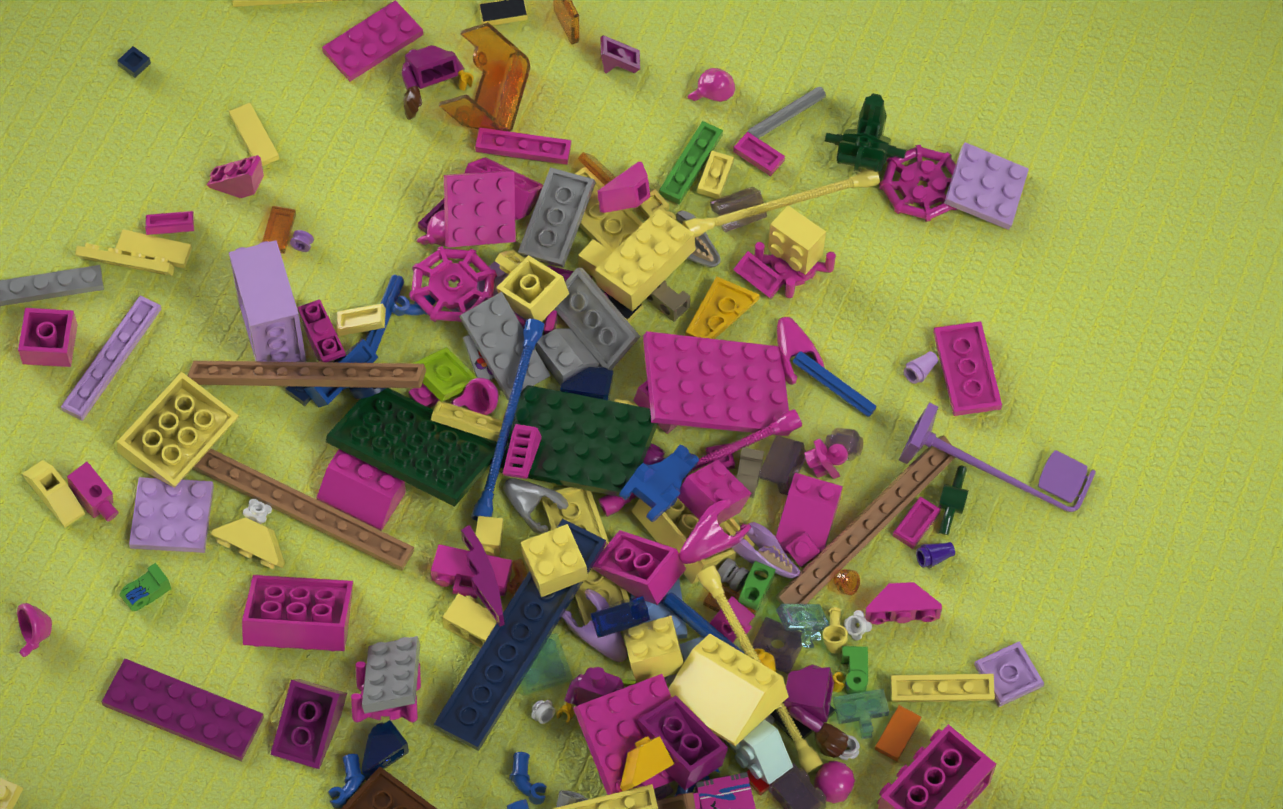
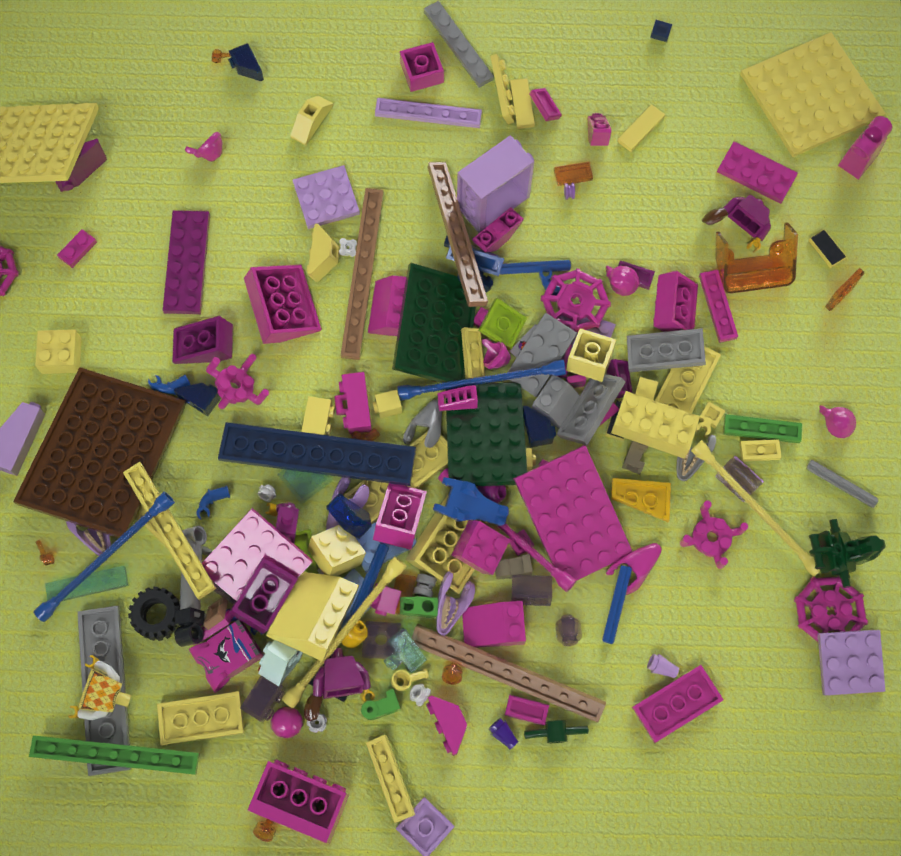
camera: 70 degrees right, 10 degrees up
(92, 492) = (317, 140): dark pink torso -> none
(145, 588) = (264, 203): bright green leg -> none
(176, 431) = (384, 171): light yellow slope -> none
(361, 319) = (523, 253): light yellow tile -> none
(391, 674) = (247, 378): light grey plate -> none
(479, 208) = (643, 292): dark pink plate -> none
(484, 581) = (340, 414): magenta slope -> none
(509, 260) = (614, 331): light yellow plate -> none
(554, 560) = (374, 452): light yellow brick -> none
(596, 168) = (722, 367): clear orange tile -> none
(619, 54) = (828, 340): magenta slope -> none
(625, 190) = (710, 389): dark pink slope -> none
(645, 762) = (230, 575): yellow slope -> none
(709, 537) = (433, 555): dark pink animal -> none
(759, 154) = (794, 475): dark pink plate -> none
(759, 275) = (687, 514): dark pink plate -> none
(796, 240) = (722, 528): light yellow brick -> none
(803, 549) = (466, 630): dark pink plate -> none
(824, 459) = (546, 620): dark pink hips -> none
(861, 708) = (352, 721): clear light blue plate -> none
(898, 733) = (343, 757): orange tile -> none
(1060, 475) = (611, 811): medium lavender piece -> none

